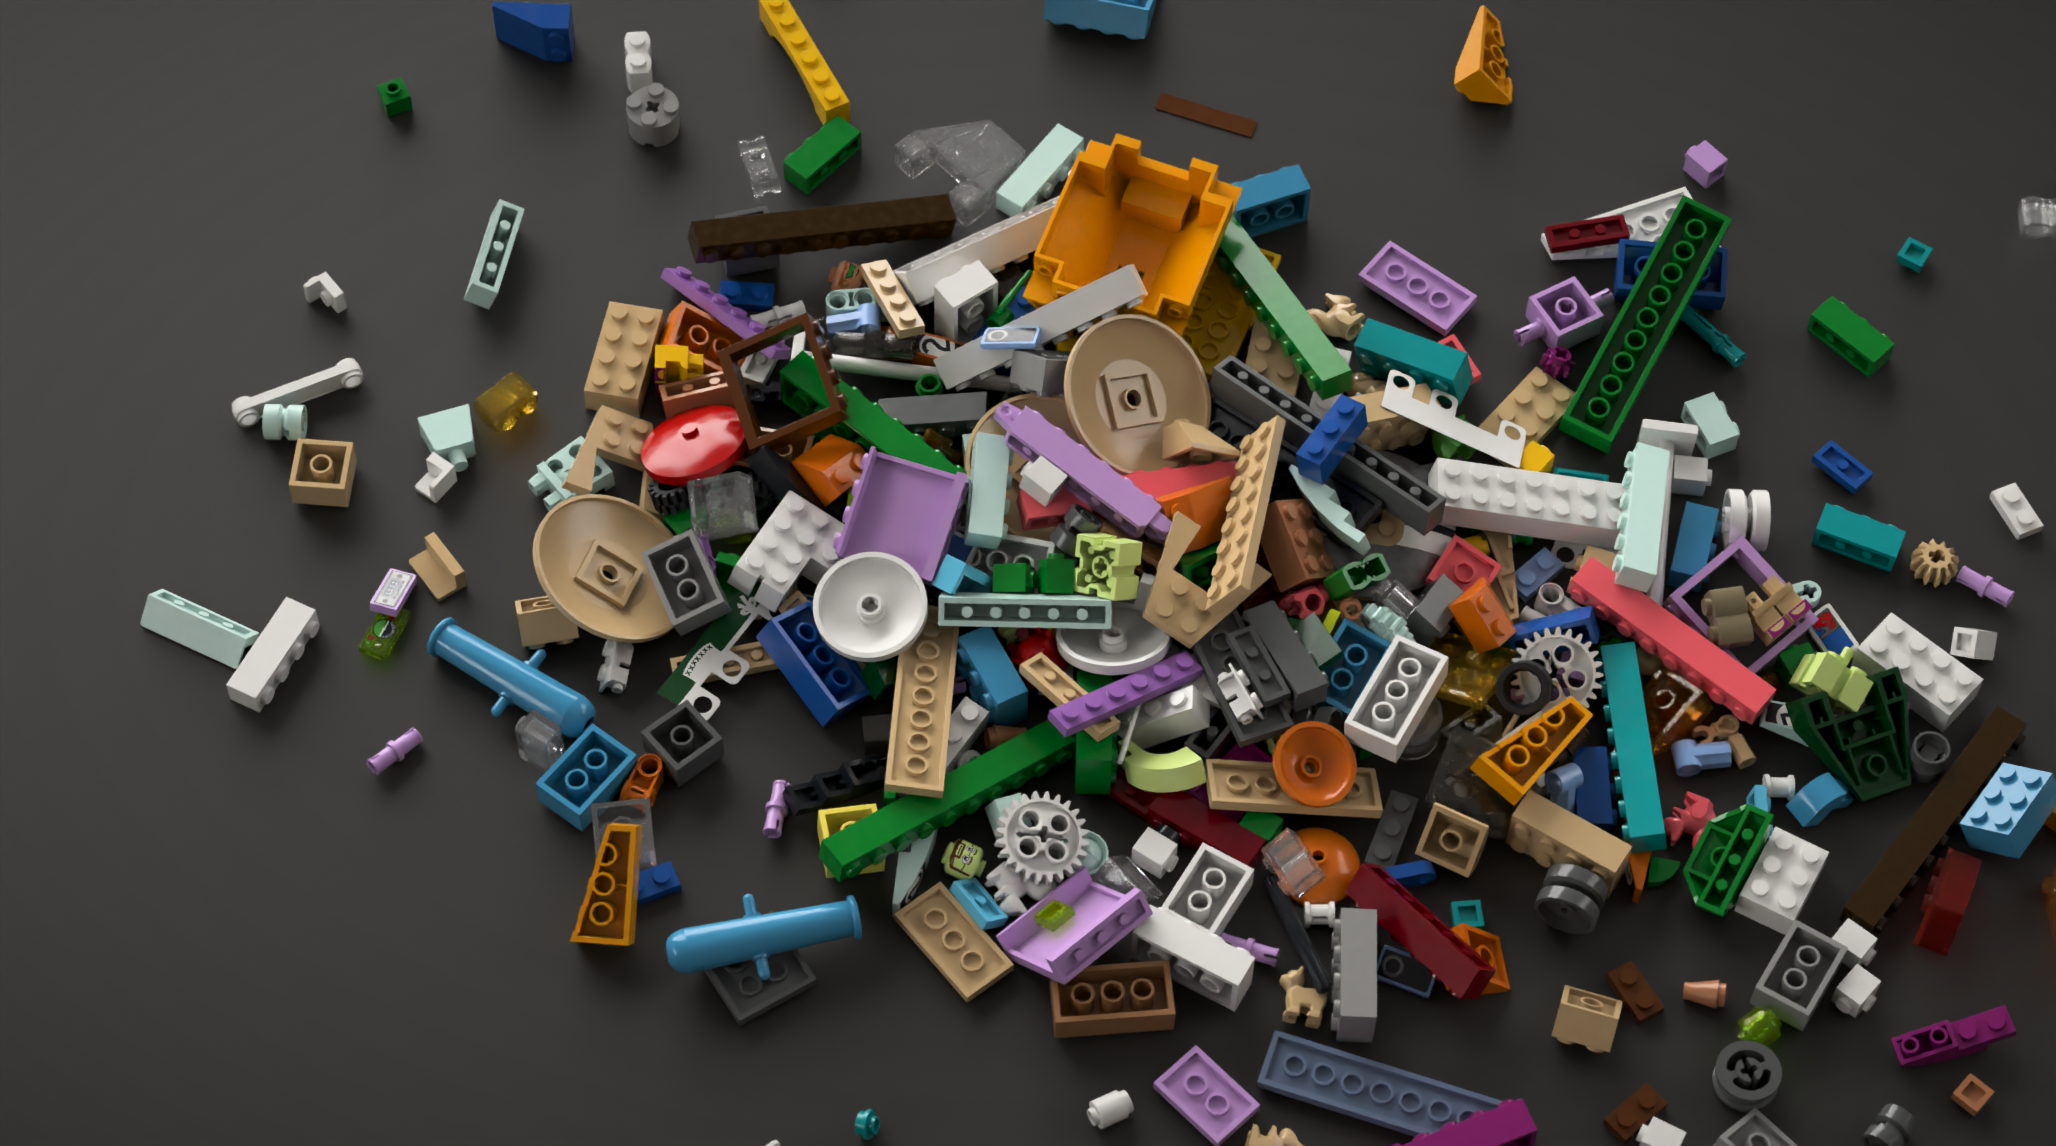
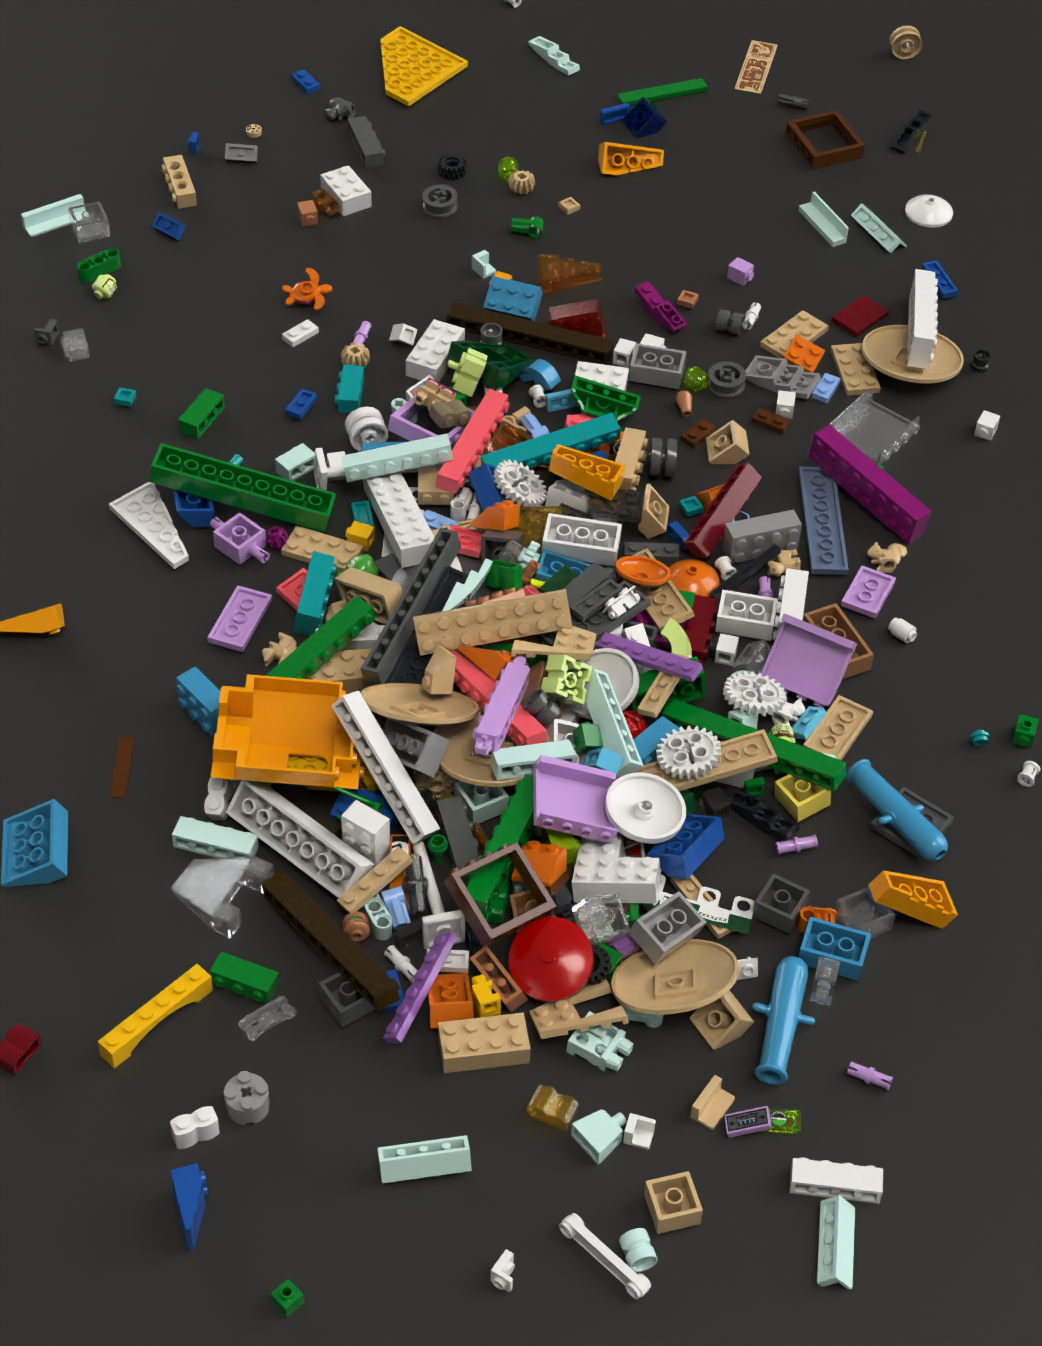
camera: 110 degrees left, 10 degrees down
(939, 686) = (674, 756): none -> white gear
(1011, 338) = (406, 774): slope -> none
(1042, 480) = (521, 721): white brick -> none
(1054, 915) = (798, 680): clear neon green tile -> none
(1055, 575) = (578, 712): green brick -> none
(1292, 863) = (706, 577): clear brick -> none
(1331, 439) = (424, 584): blue brick -> none
(1445, 422) = (364, 560): white piece -> none
(1502, 687) = (548, 487): black tyre -> none
(1586, 233) = (170, 537): dark red plate -> none
(1705, 164) = (85, 498): lavender brick -> none

